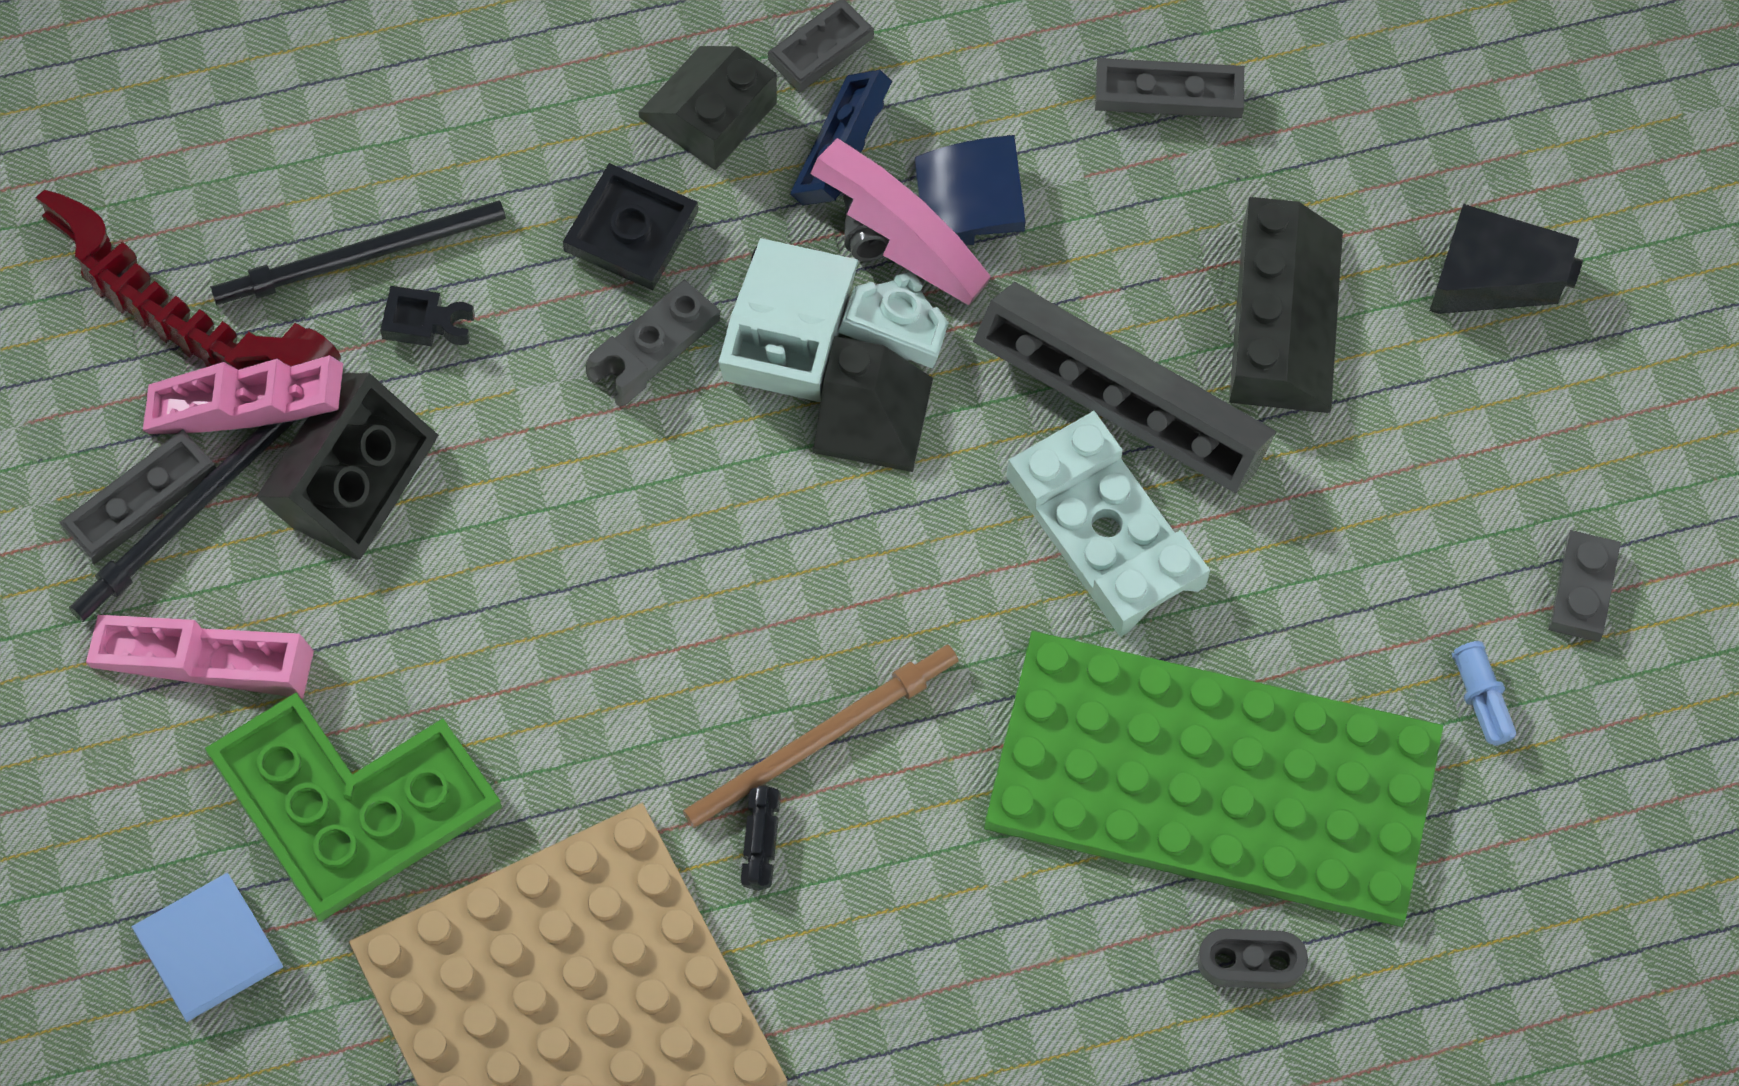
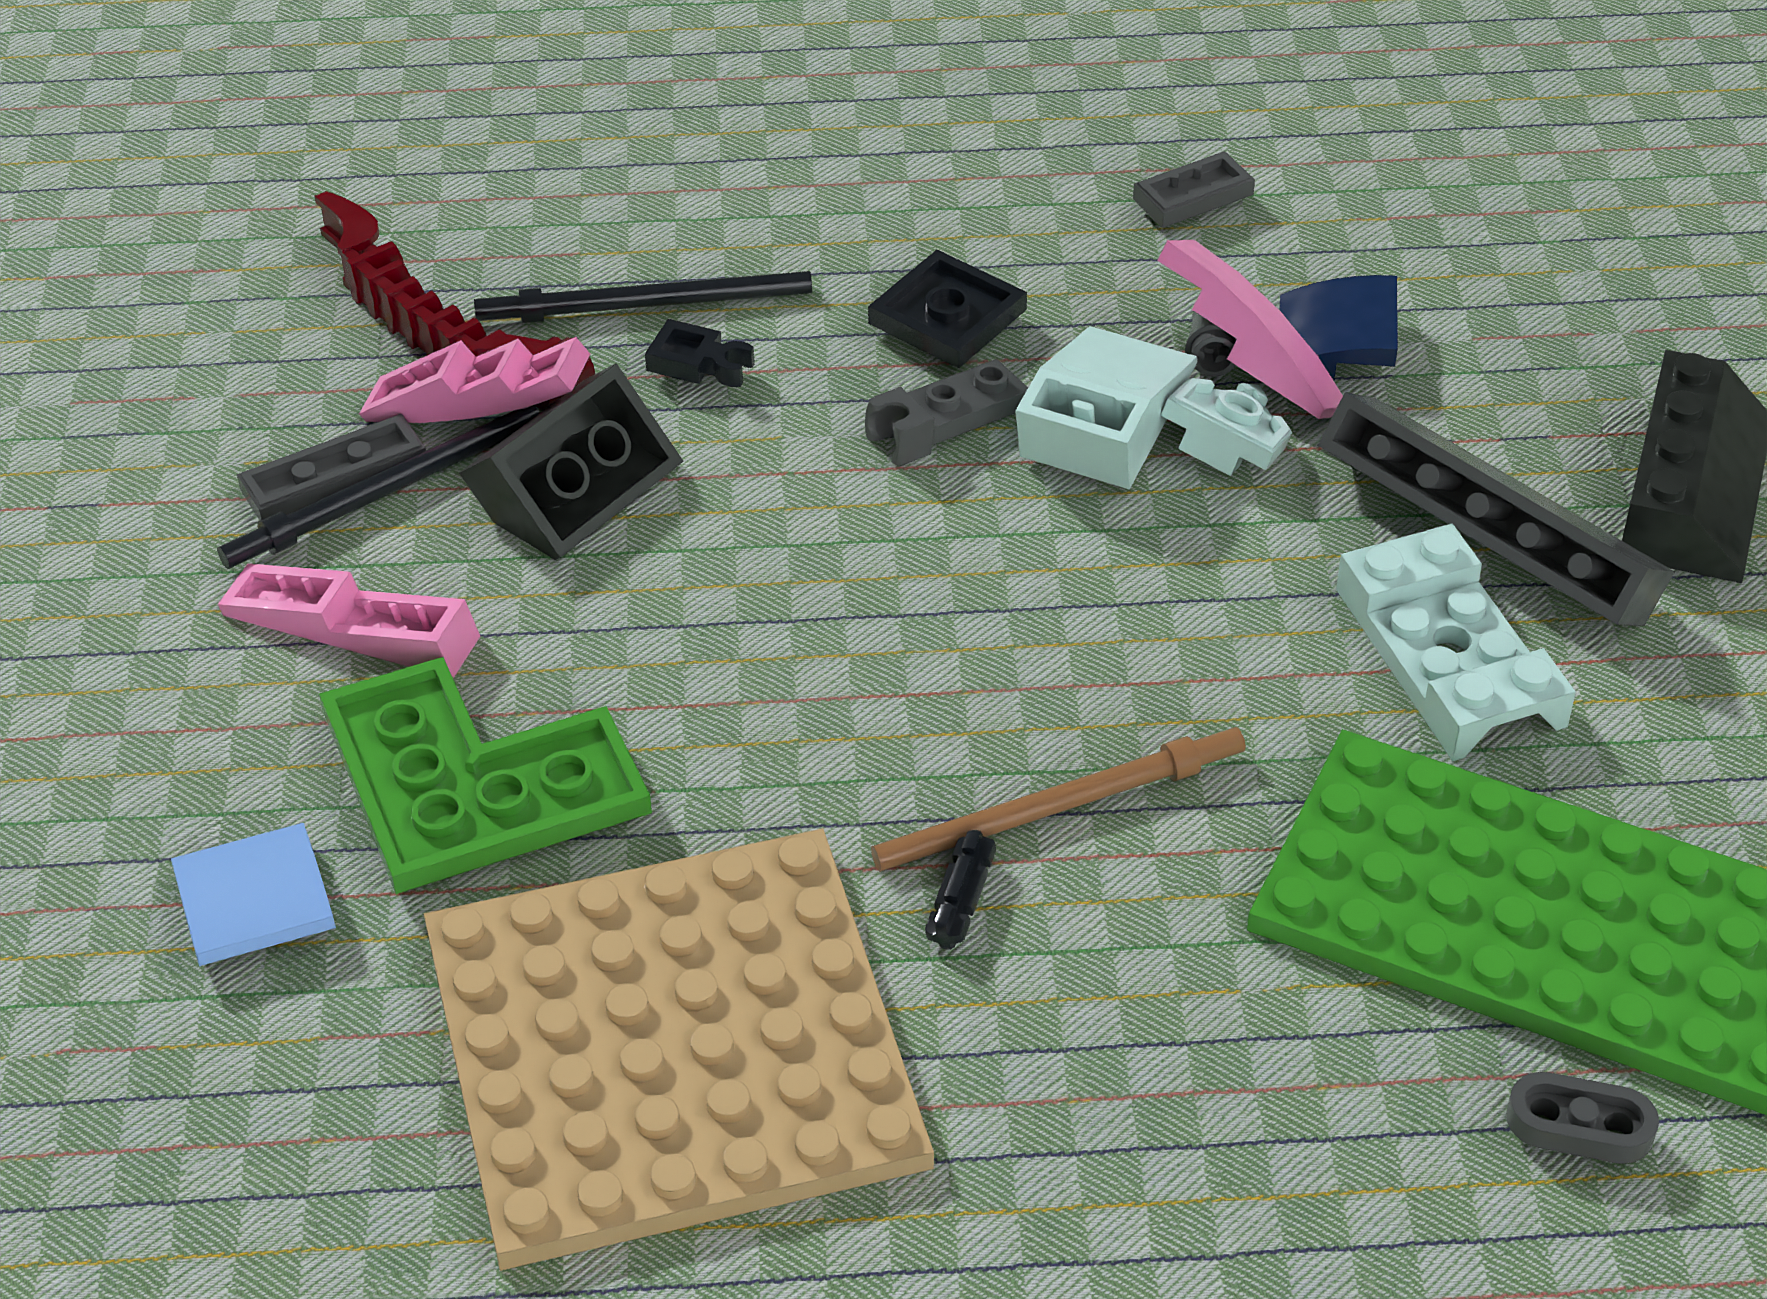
camera: 15 degrees right, 20 degrees down
(713, 102) = (1069, 221): pearl dark grey slope -> none
(848, 120) = (1226, 239): dark blue plate -> none
(871, 406) = (1186, 492): pearl dark grey slope -> none
(1169, 88) = (1582, 268): dark grey plate -> none

